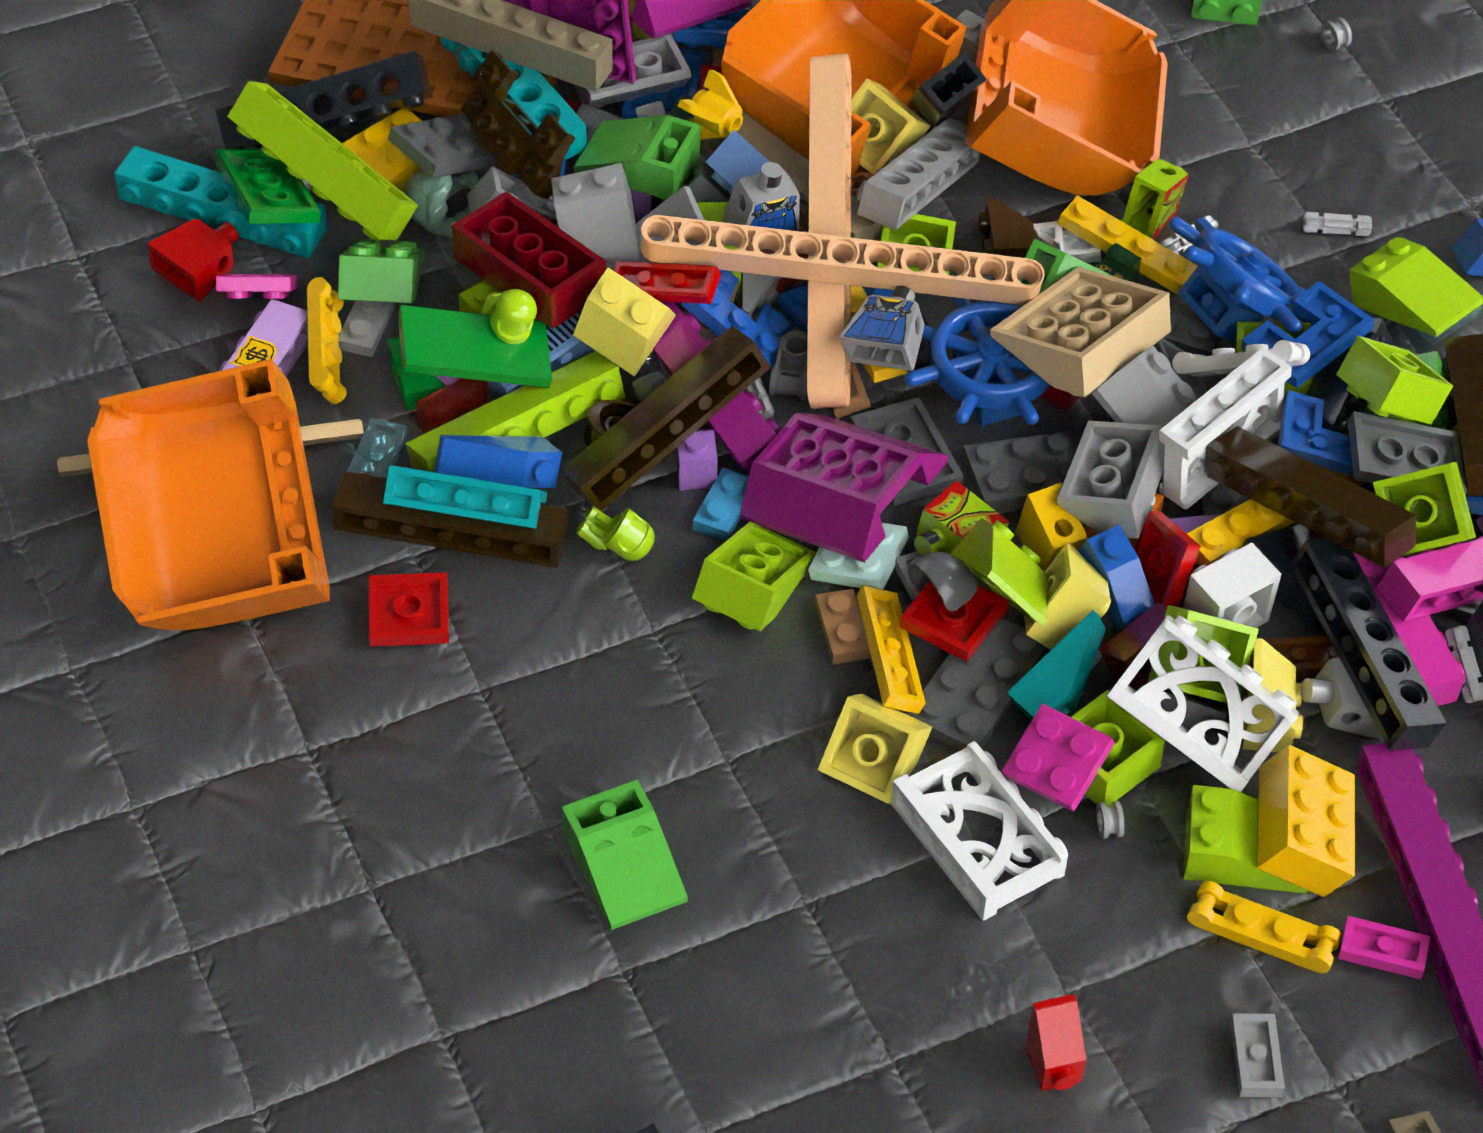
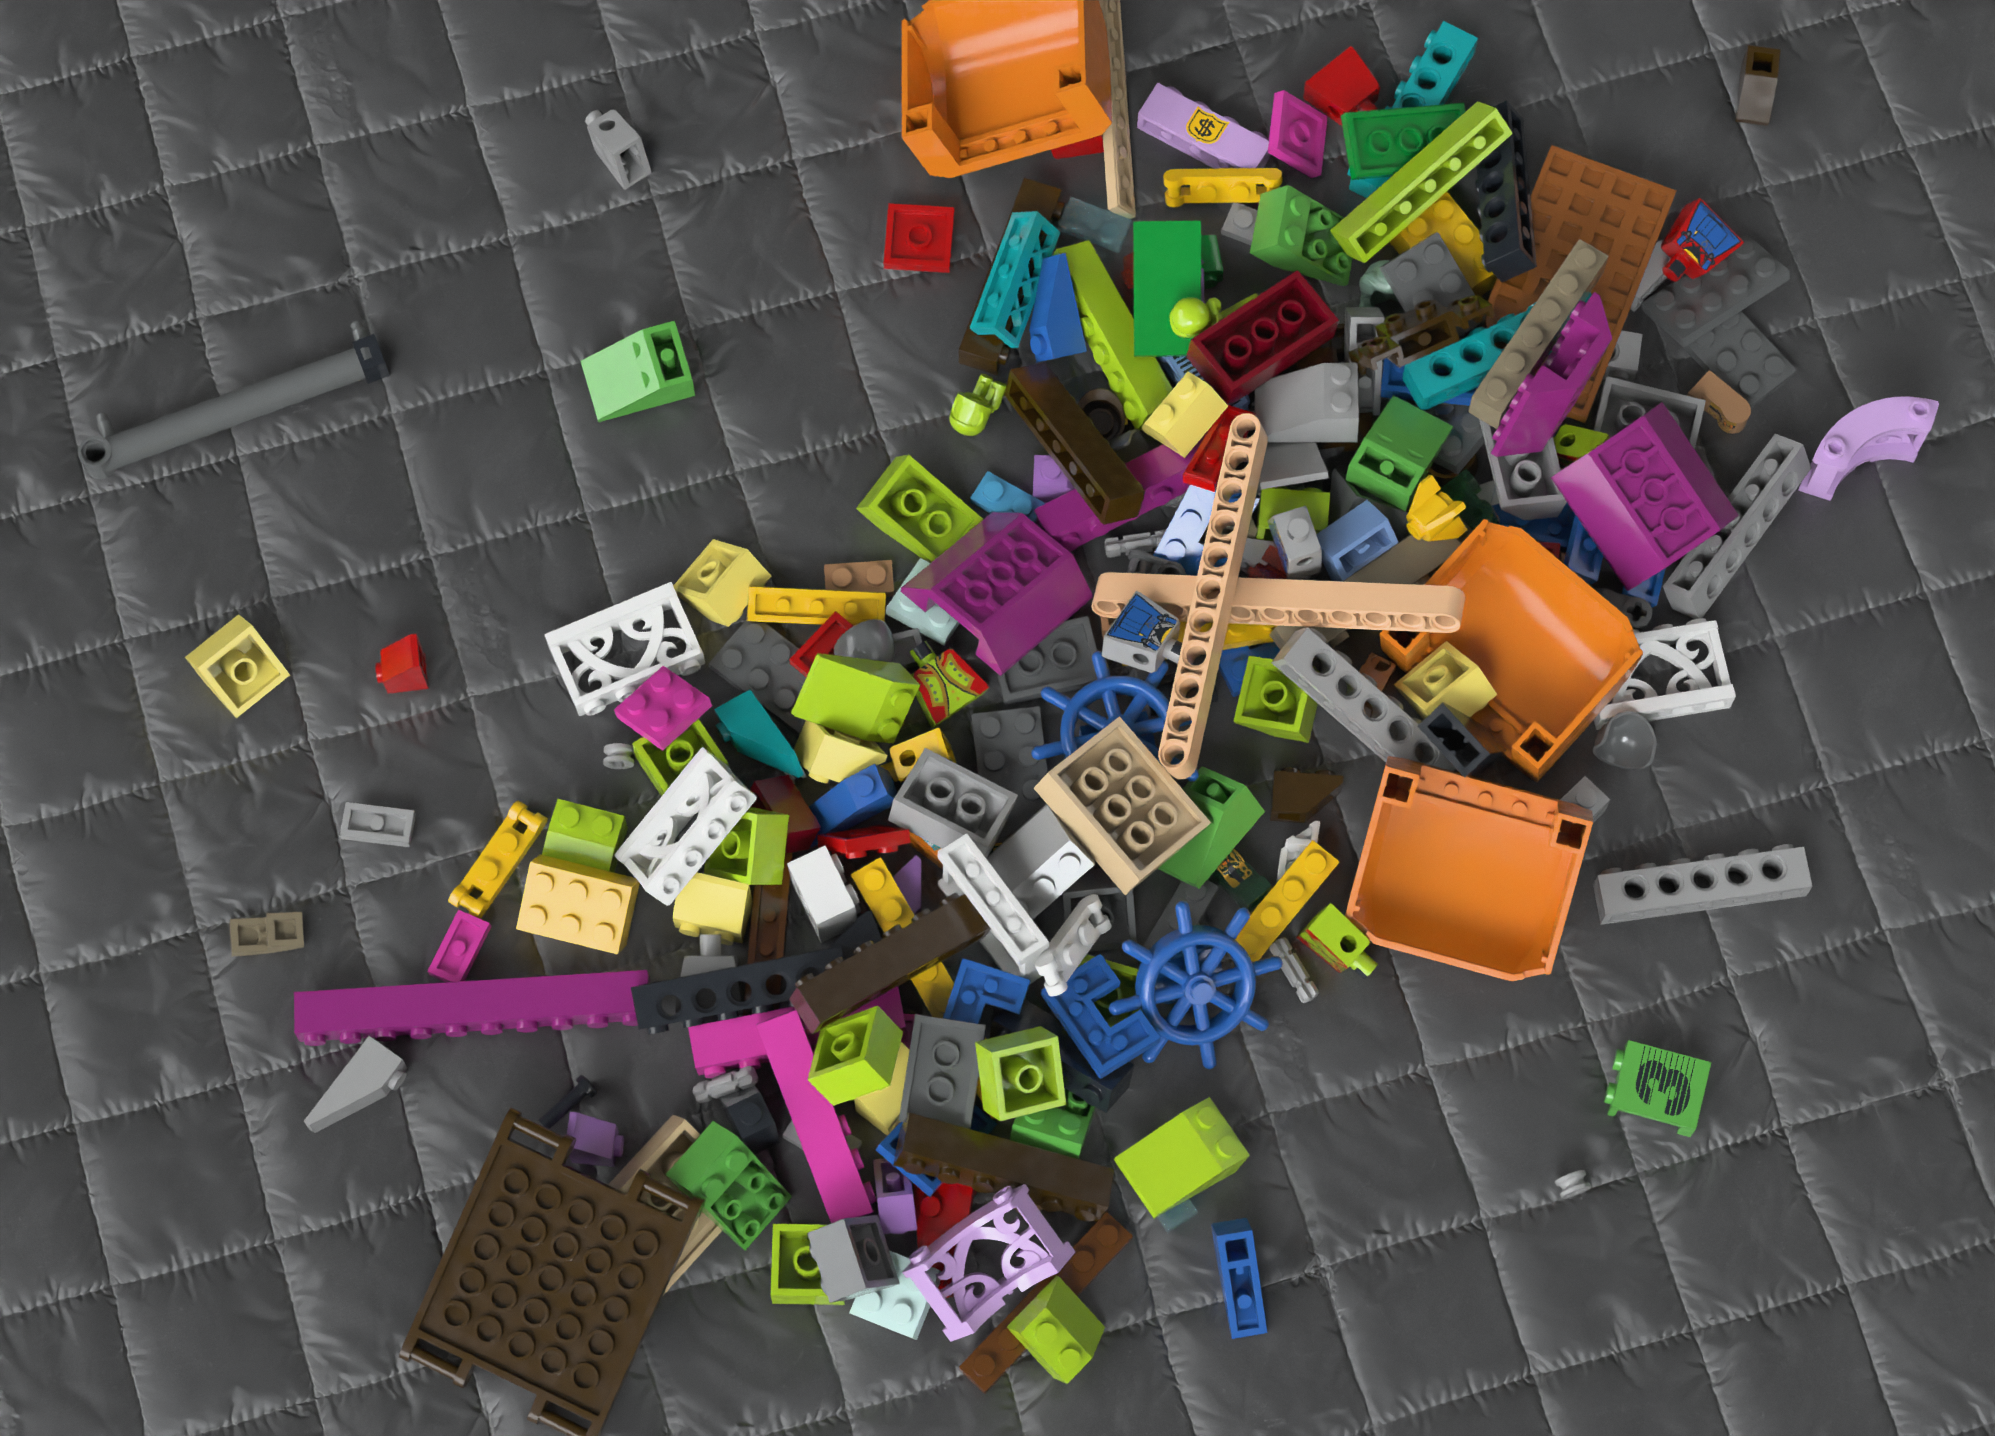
camera: 100 degrees right, 20 degrees up
(314, 913) = (610, 138): none -> light grey torso
(1336, 223) = (1299, 1119): light grey axle -> none

